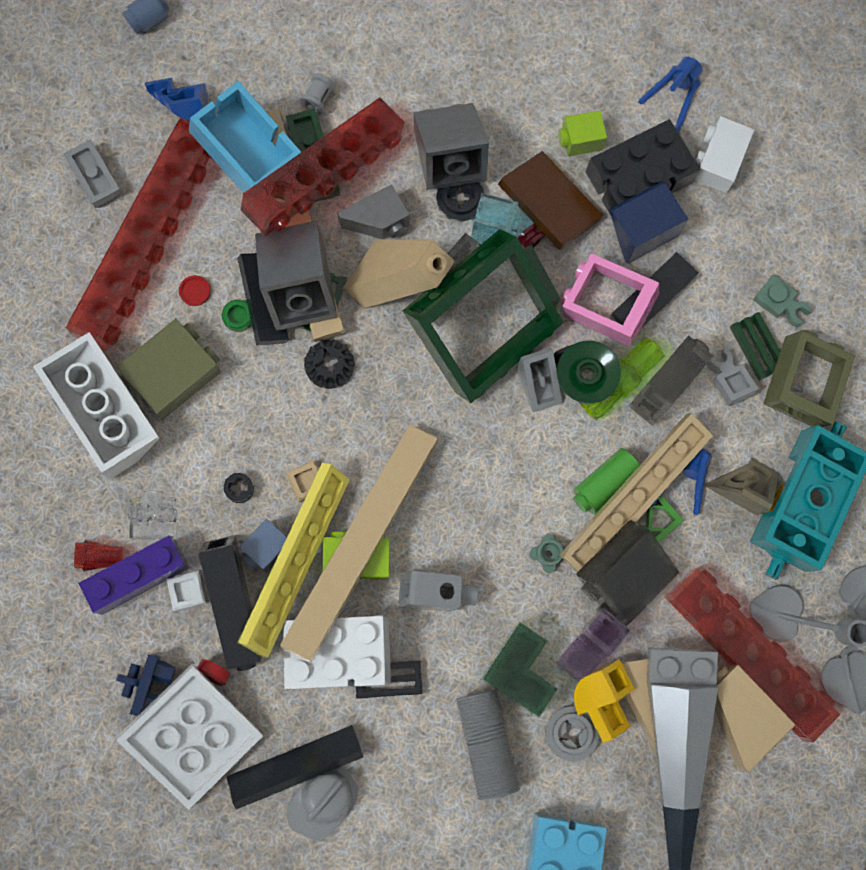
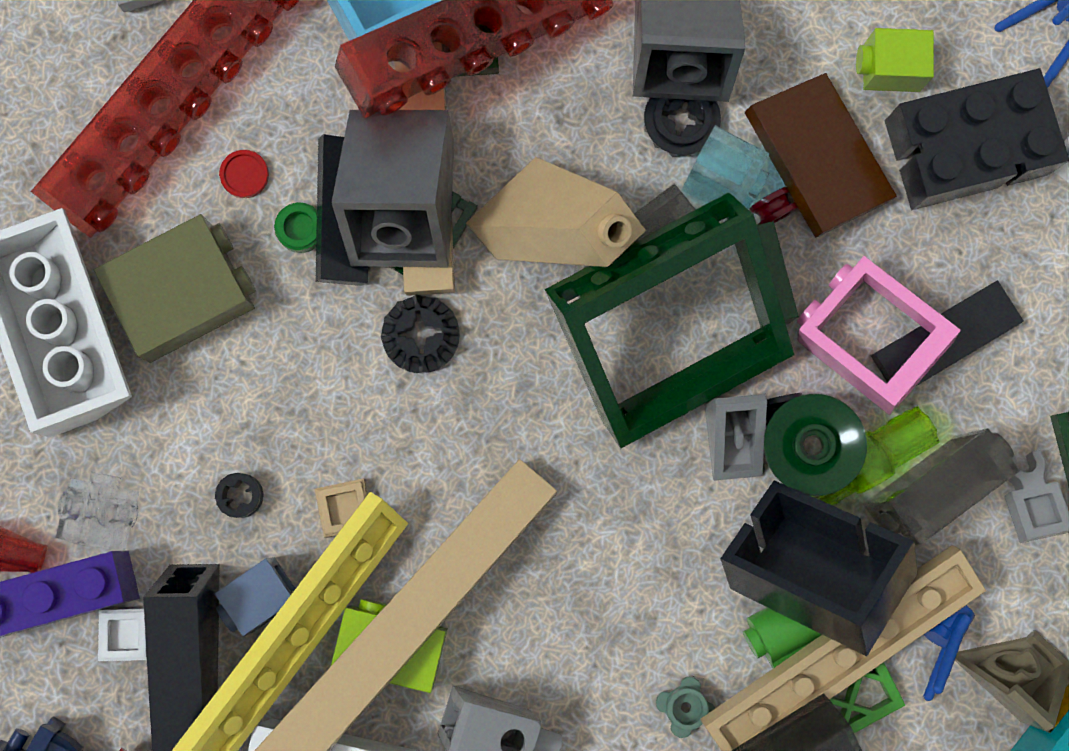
camera: 15 degrees right, 5 degrees up
(377, 215) = (547, 119): flat silver slope -> none
(607, 442) = (818, 567): none -> black piece
(647, 221) = (965, 223): dark blue slope -> none

